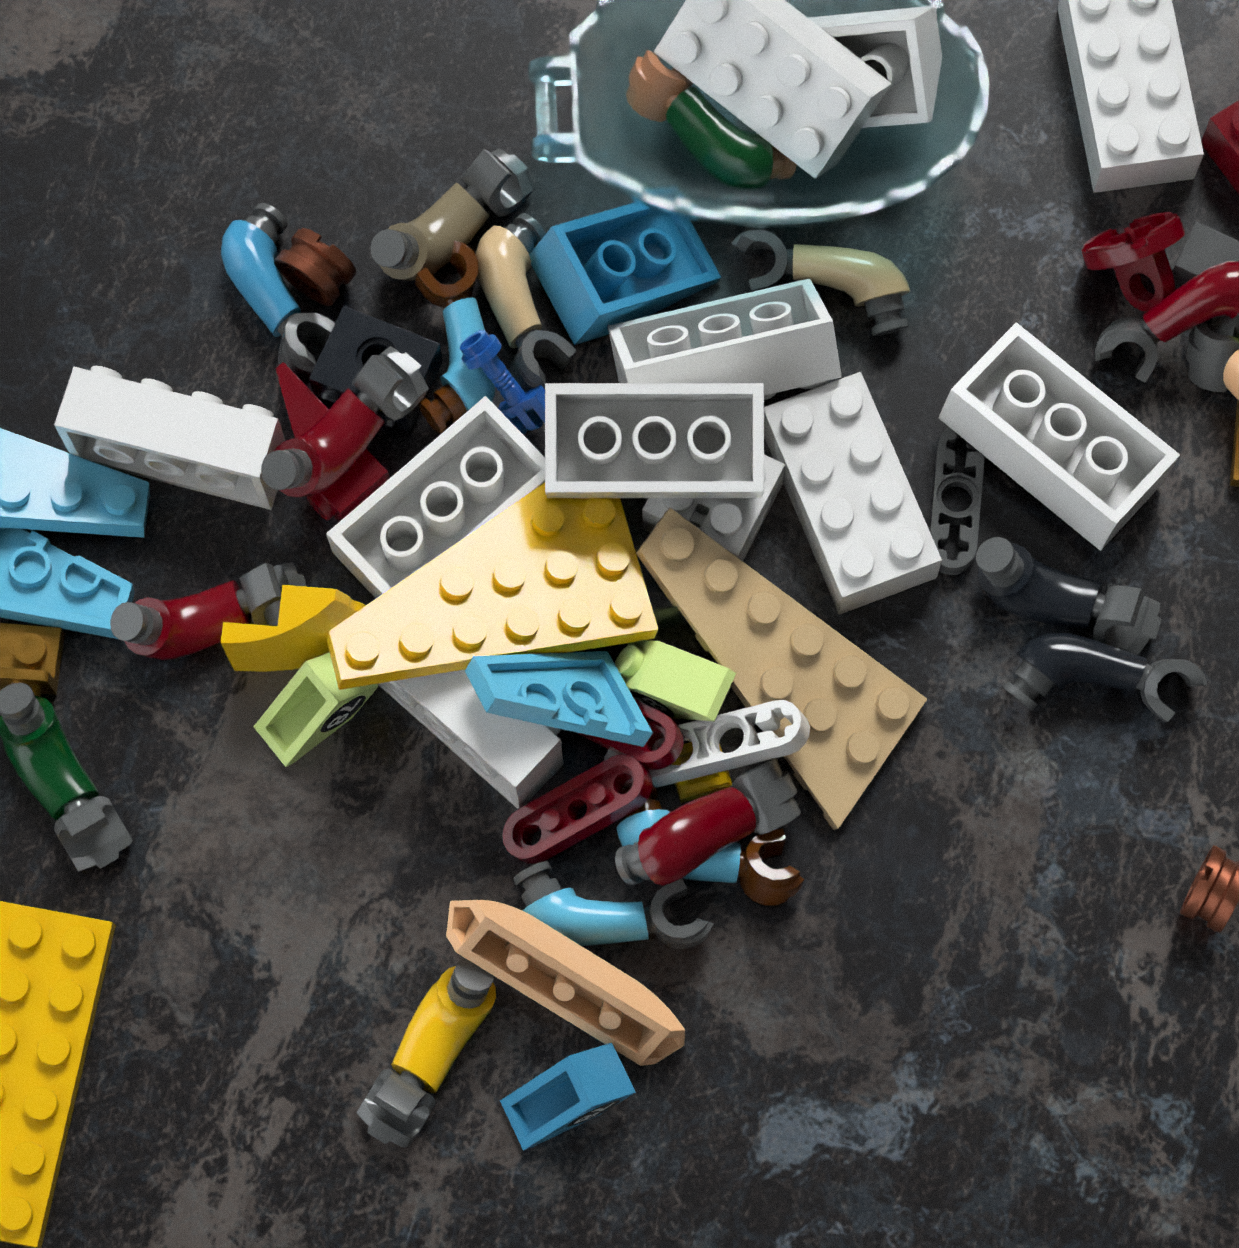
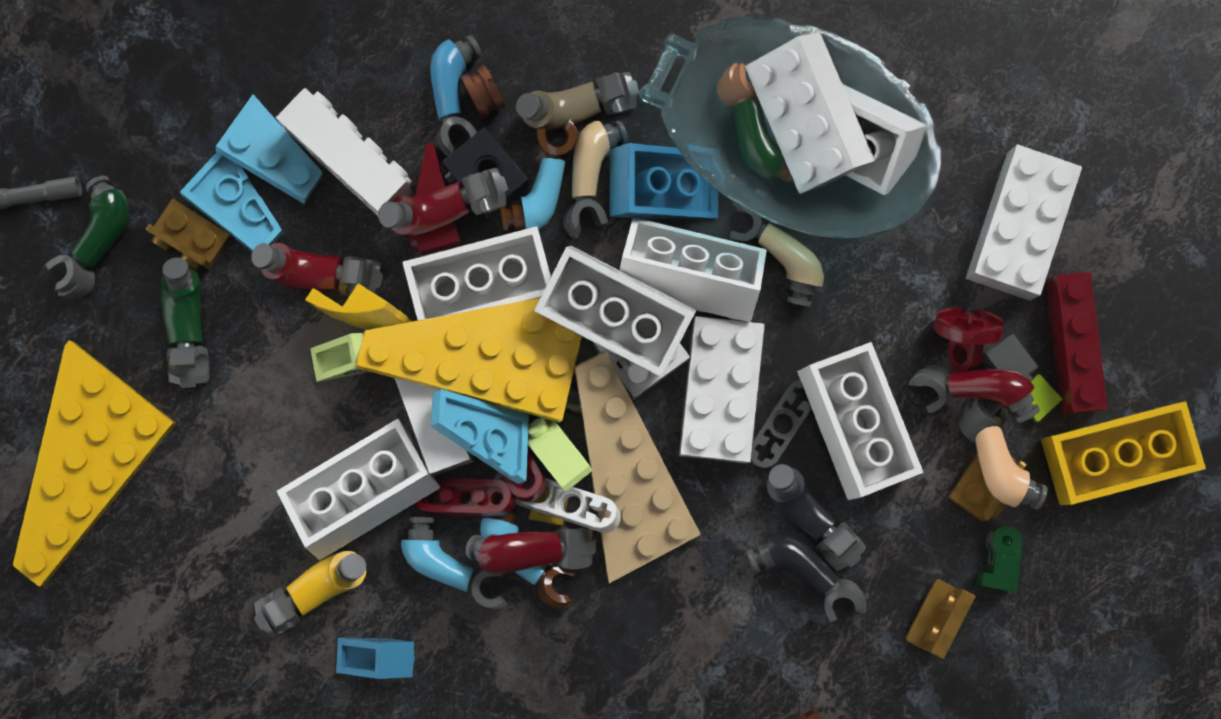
camera: 20 degrees right, 10 degrees up
(432, 847) = (357, 489): none -> white brick
(521, 408) = (554, 239): blue hinge -> none
(565, 978) = (404, 592): light nougat brick -> none

